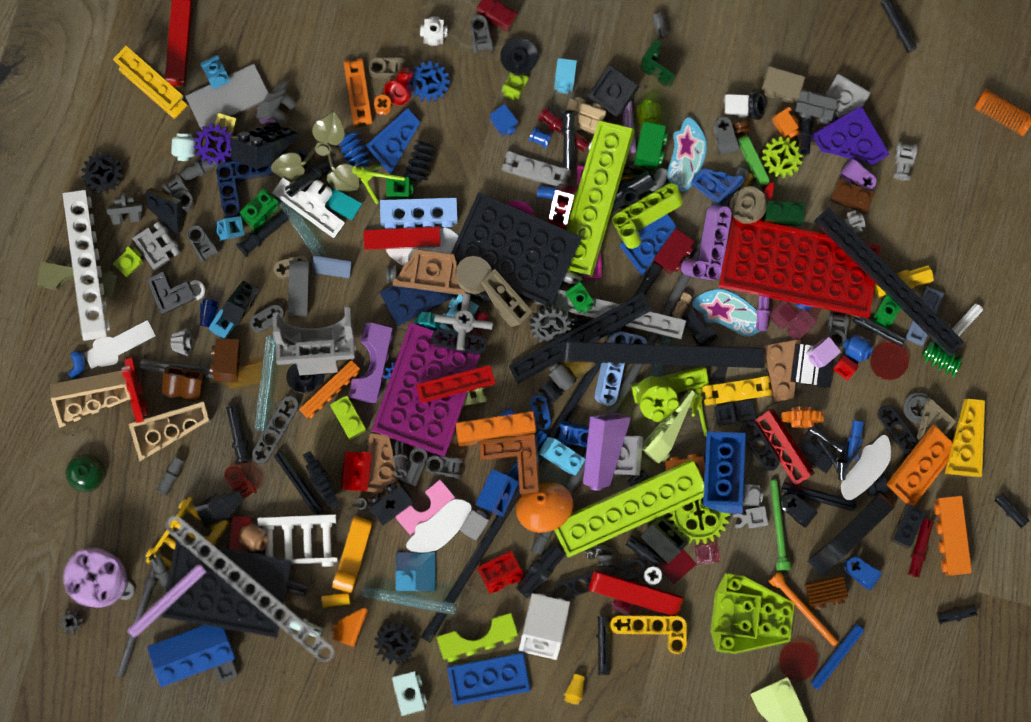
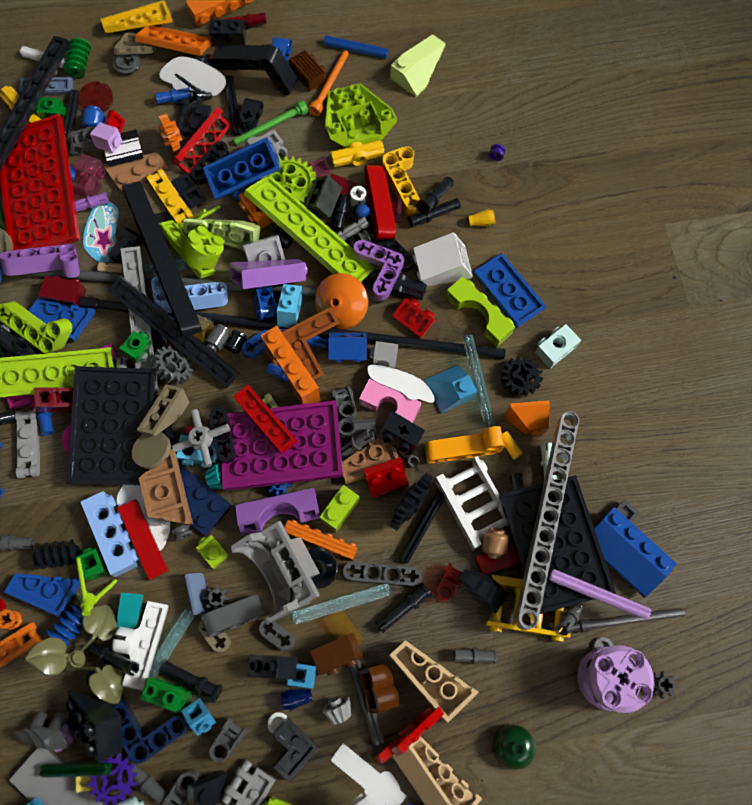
camera: 110 degrees left, 10 degrees down
(234, 118) = (75, 769): none -> dark green axle
(314, 278) = (217, 592): none -> dark grey gear
(363, 293) = (211, 551): none -> lime bracket
(447, 131) = (11, 542): none -> dark grey pin
(558, 566) = (387, 266): none -> medium lavender beam
(614, 645) = (432, 198): none -> black pin
(618, 553) = (353, 228): none -> light grey axle
(631, 570) = (362, 211): none -> blue hinge
(703, 598) = (357, 153): none -> yellow piece
(798, 661) = (373, 72): clear red tile -> none
(884, 421) = (151, 77): black beam -> none

